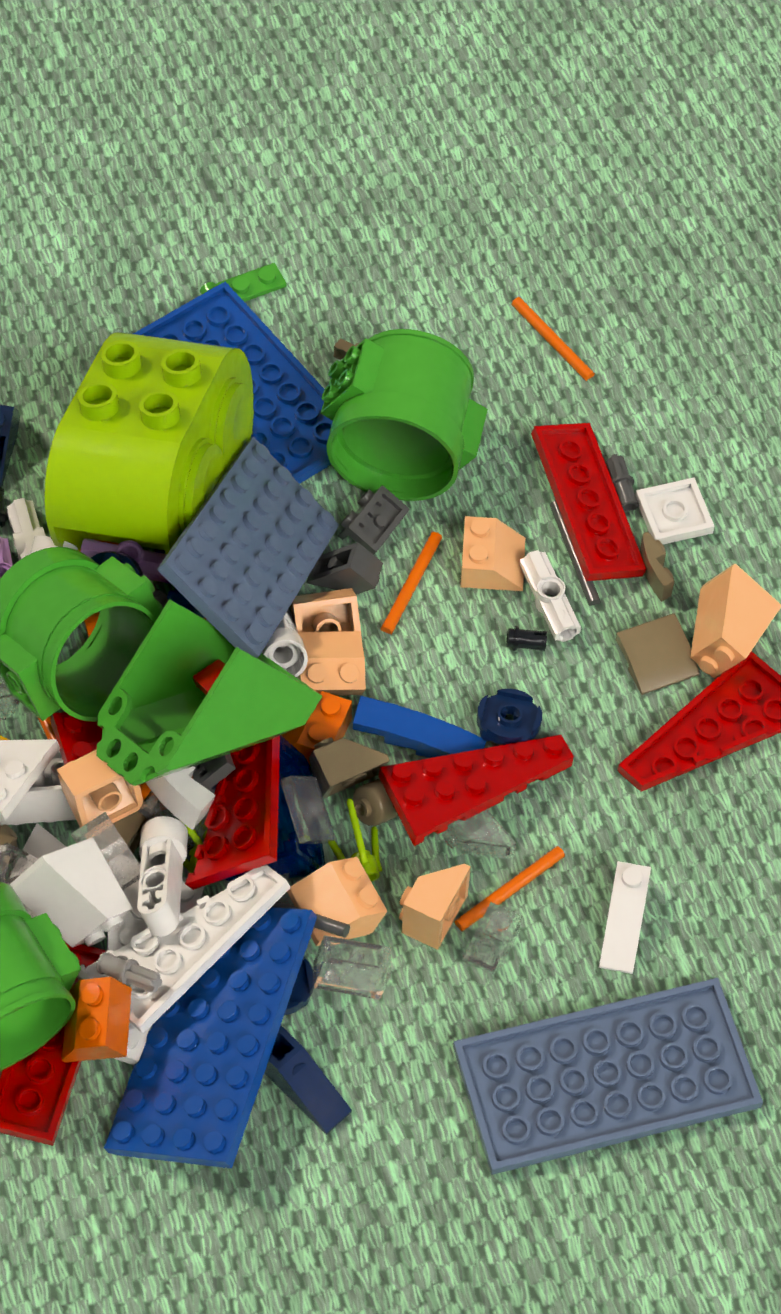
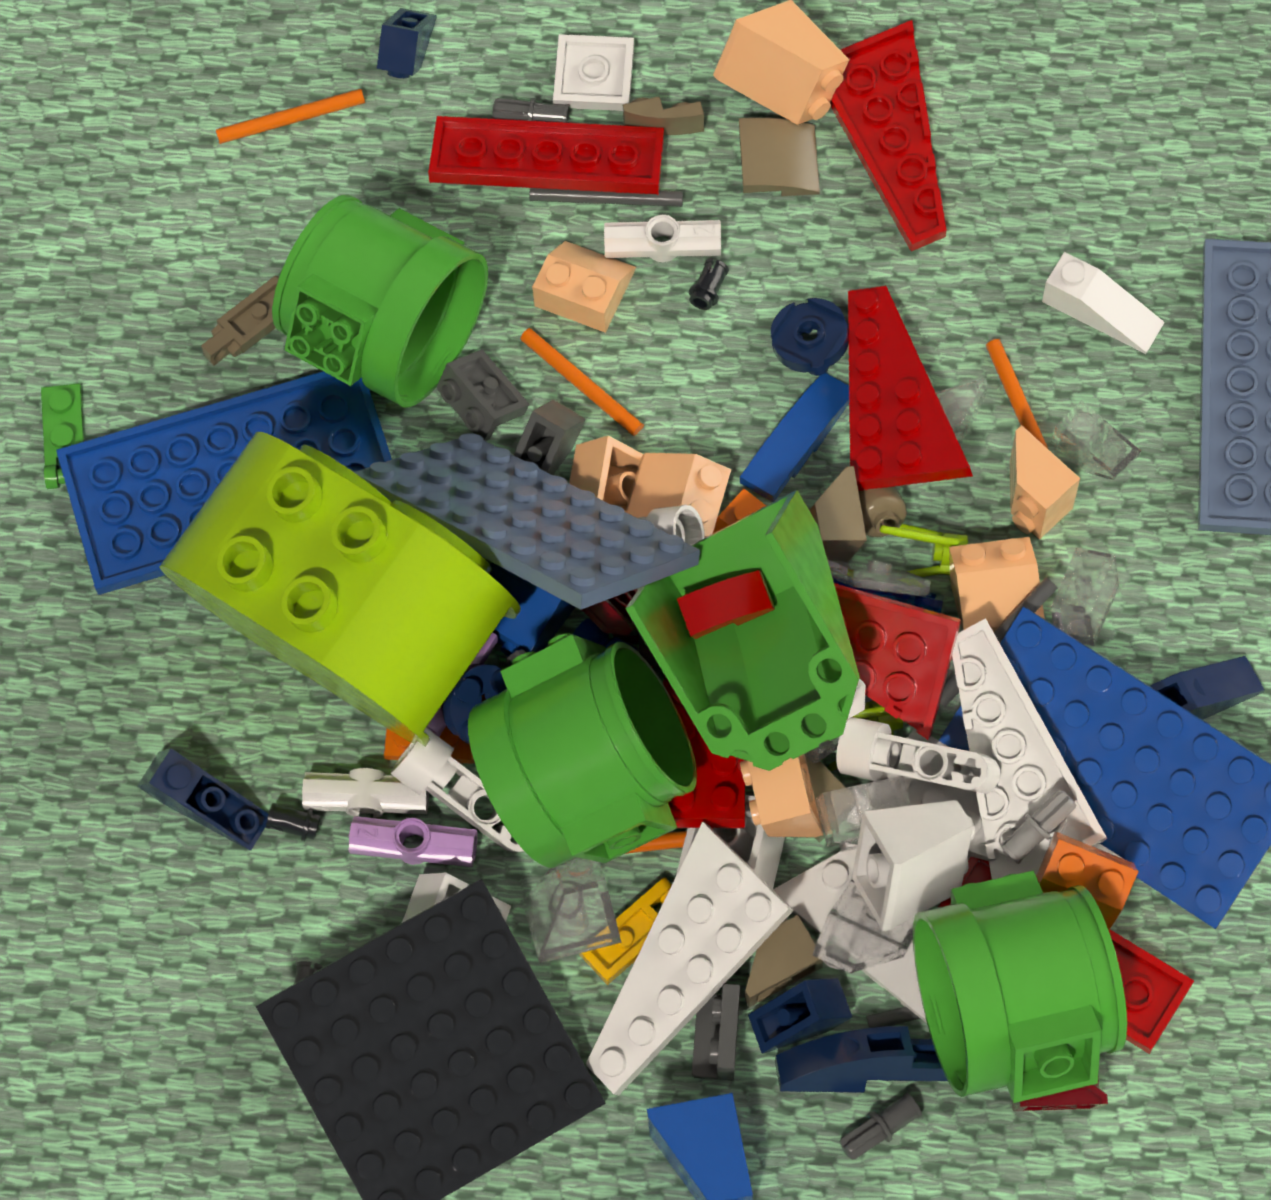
camera: 65 degrees left, 10 degrees up
(643, 384) = (404, 42): none -> dark blue slope

